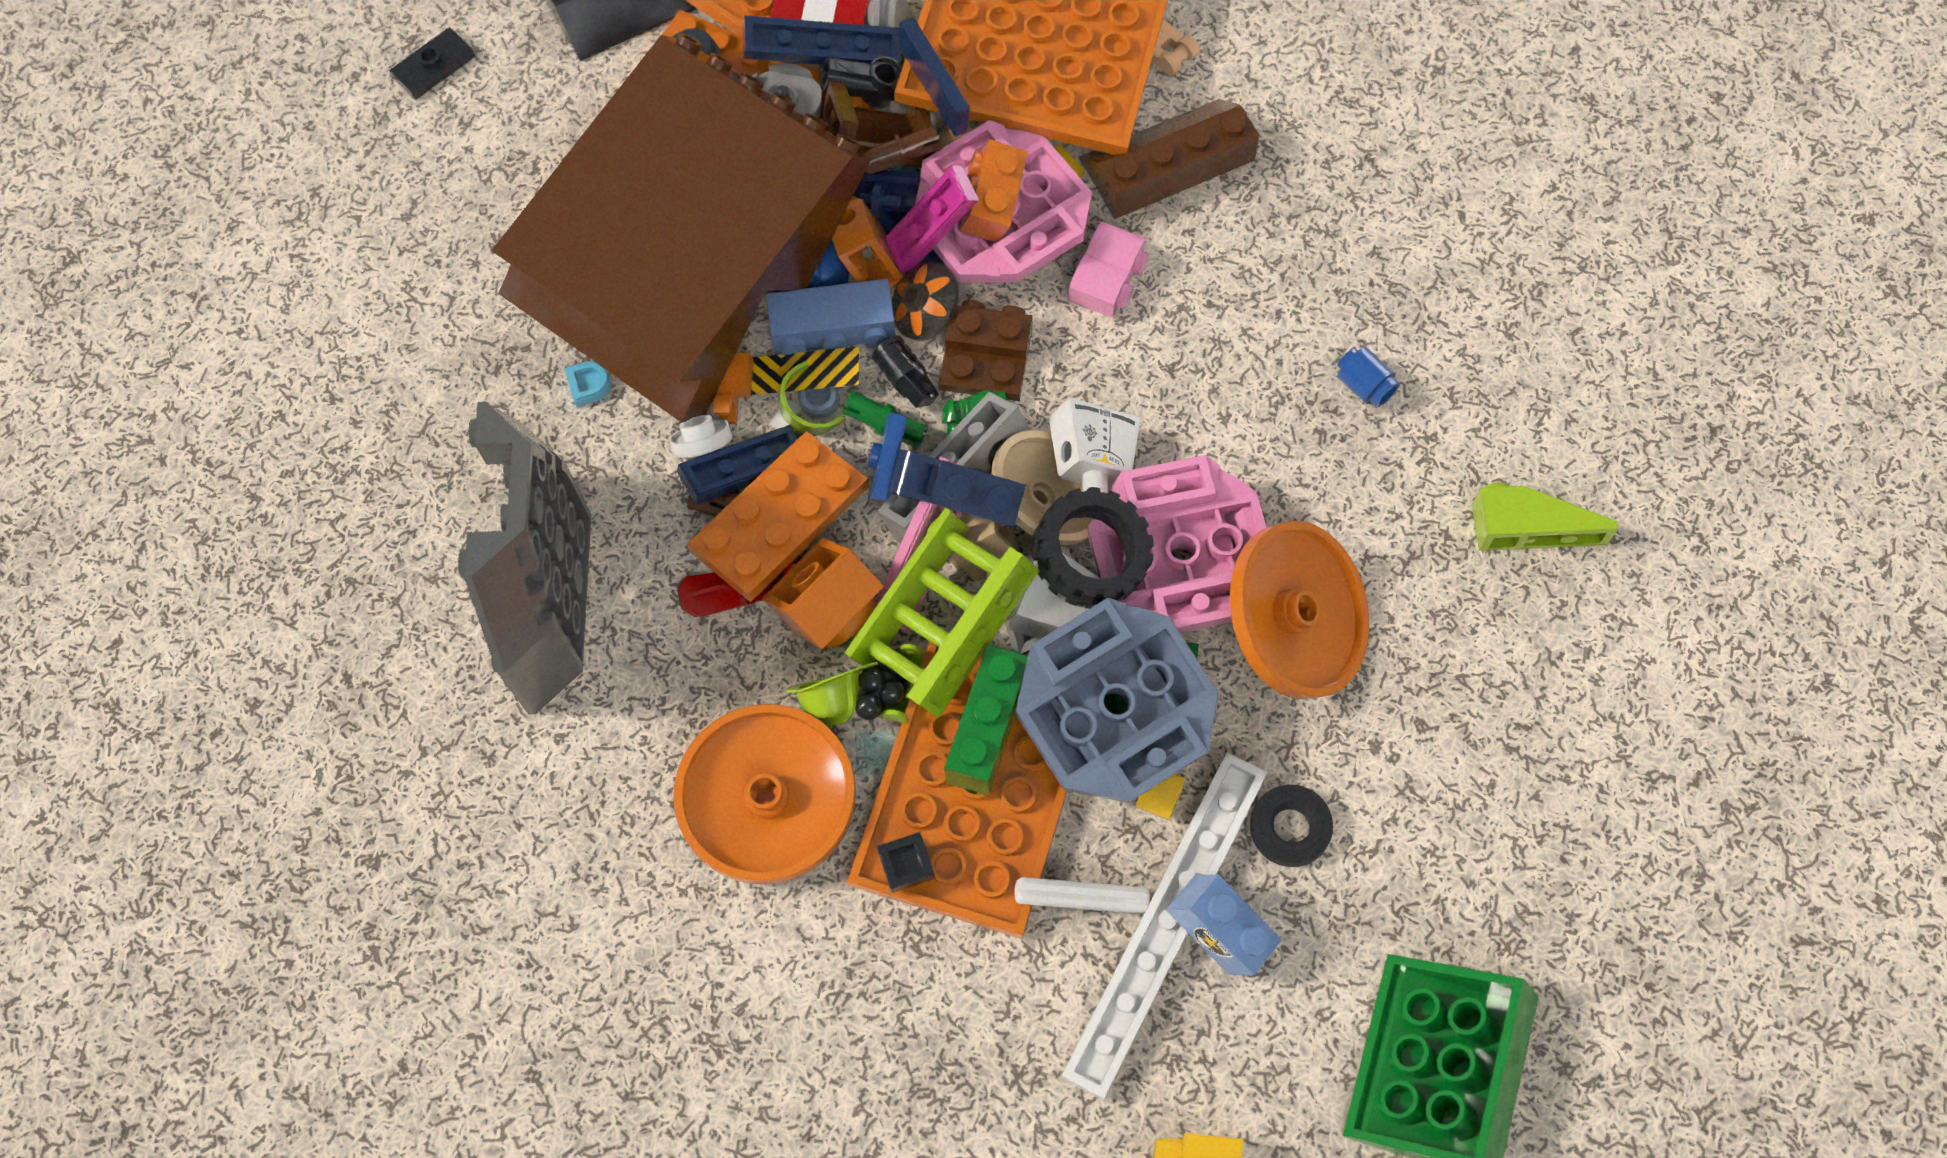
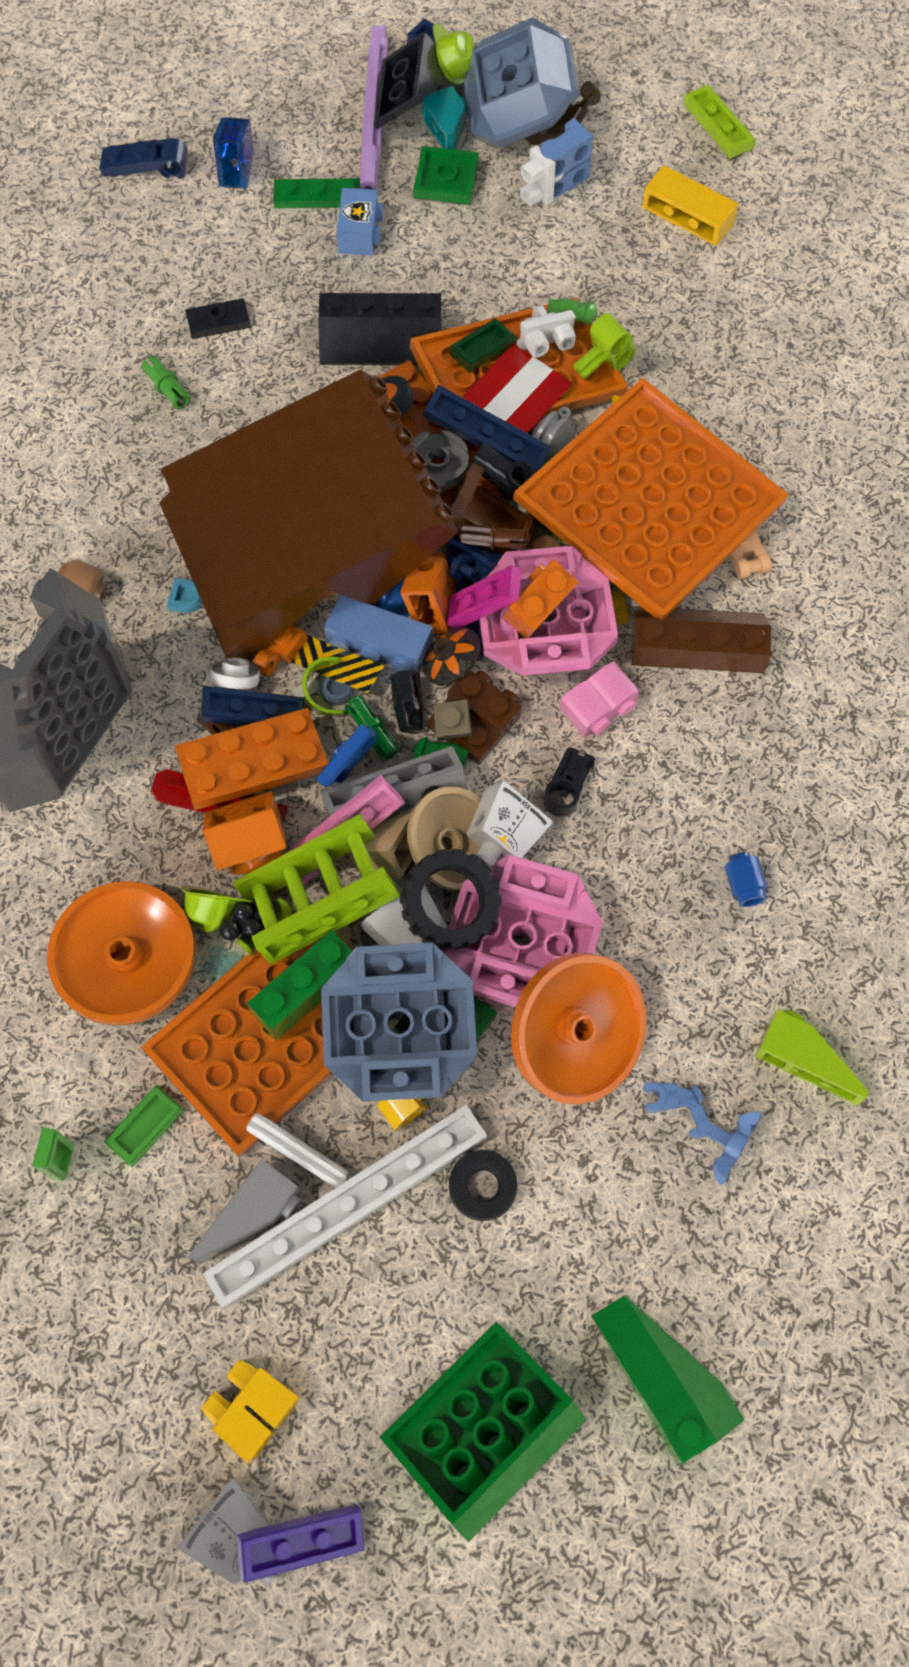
camera: 25 degrees right, 0 degrees up
(418, 160) = (166, 382): none -> bright green pin
(451, 425) = (84, 576): none -> medium nougat head
(828, 1041) = (53, 1154): none -> bright green tile
(899, 962) = (144, 1126): none -> bright green tile
(906, 862) = (185, 1056): black plate -> none
(934, 76) = (546, 494): dark blue tile -> none
(956, 487) = (377, 804): dark blue plate -> none
(969, 366) = (452, 720): none -> dark tan plate
(1074, 977) = (253, 1209): none -> light grey slope
(1124, 368) = (570, 779): none -> black piece
(1224, 925) = (382, 1231): medium blue brick -> none
(1516, 646) = (674, 1097): none -> medium blue piece
(1596, 916) = (674, 1388): none -> green wedge

